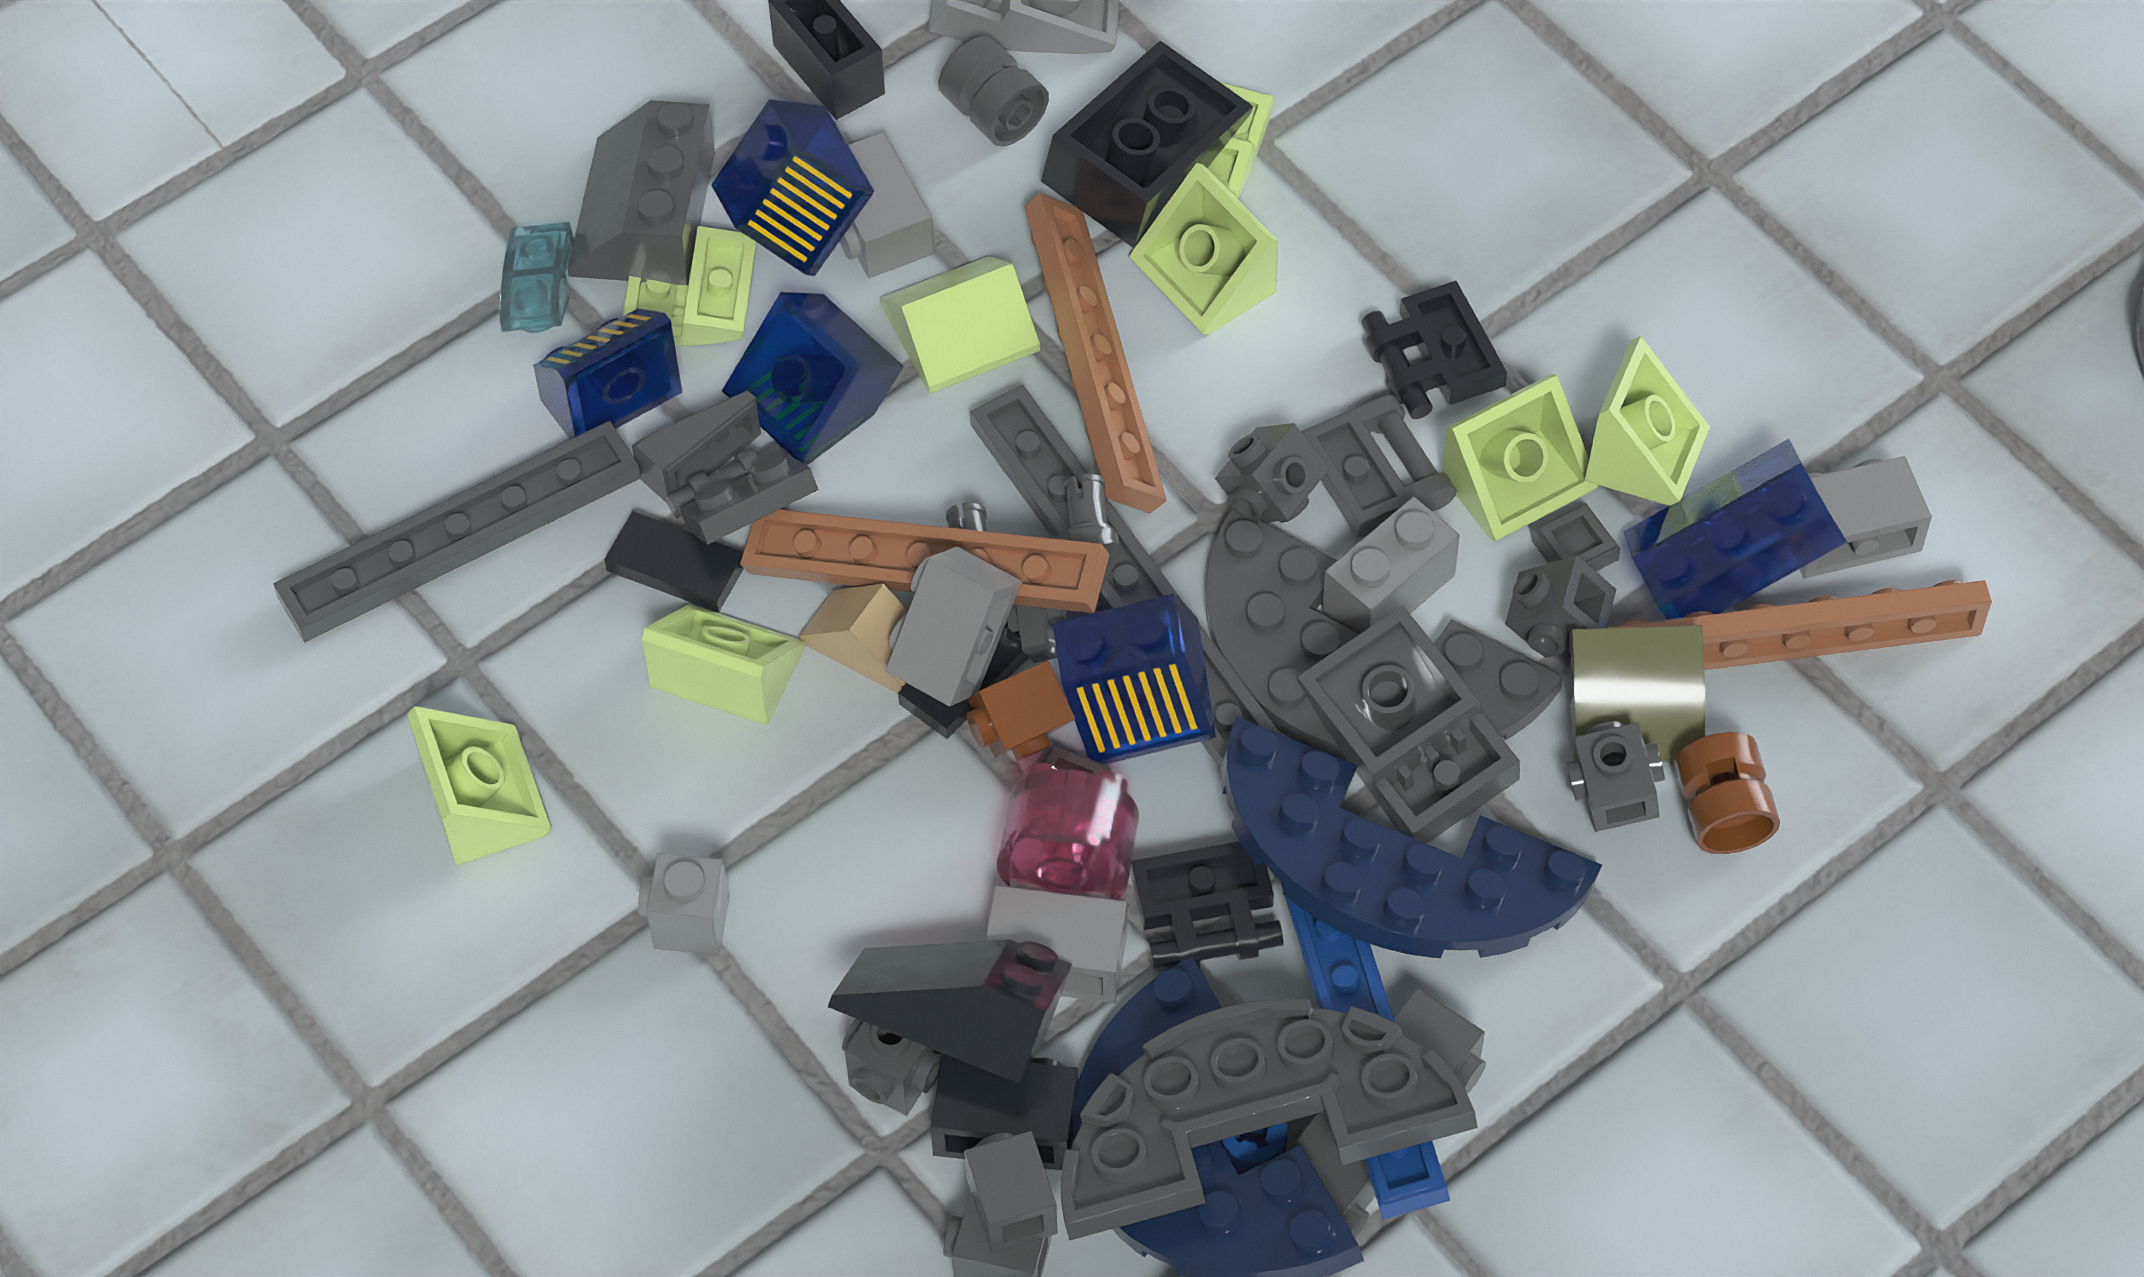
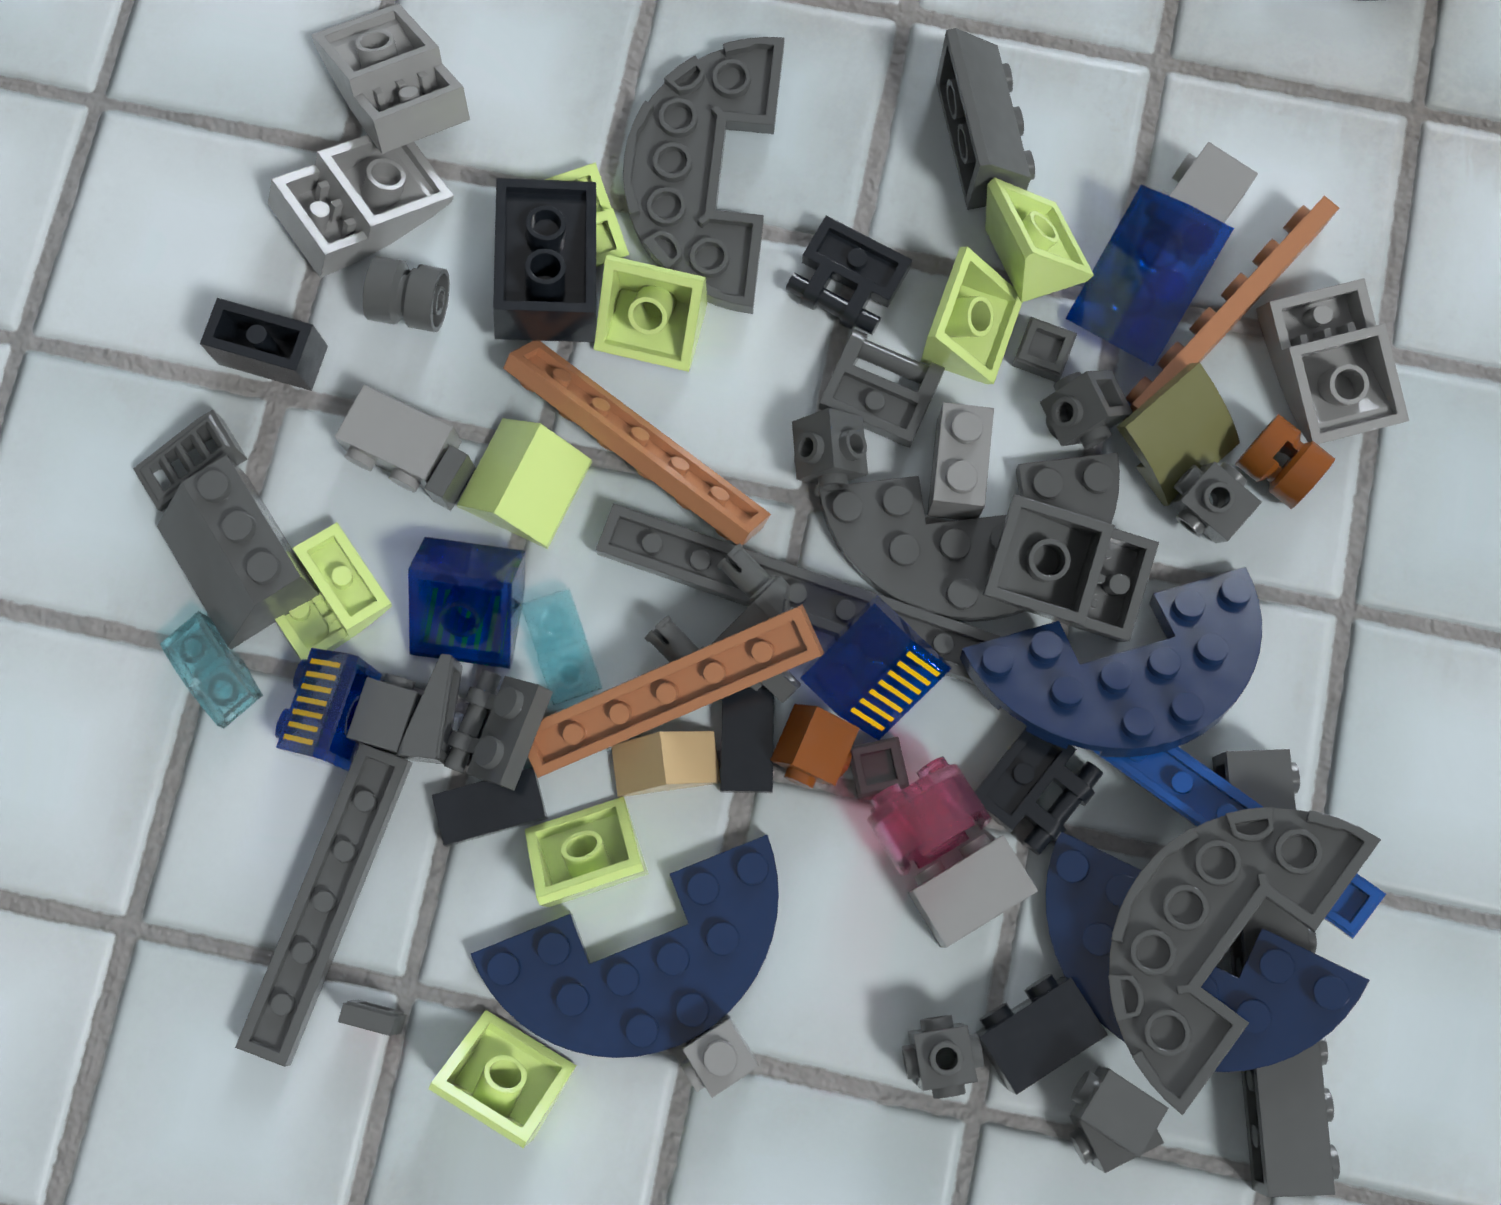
camera: 40 degrees left, 20 degrees up
(411, 648) = (372, 1017): none -> dark grey tile
(640, 802) = (654, 990): none -> dark blue plate
(650, 405) = (384, 713): none -> dark grey brick
(706, 85) = (192, 437): none -> dark grey slope
(793, 184) = (338, 471): clear blue slope -> none
(868, 468) = (561, 646): none -> clear light blue slope
(892, 265) = (450, 478): none -> dark grey tile
(951, 625) = (737, 731): light grey brick -> none
(960, 998) = (967, 1001): black slope -> none
(1358, 147) = (677, 165): none -> dark grey plate
(1694, 286) = (981, 116): none -> dark grey slope
(1867, 744) = (1333, 362): none -> light grey slope

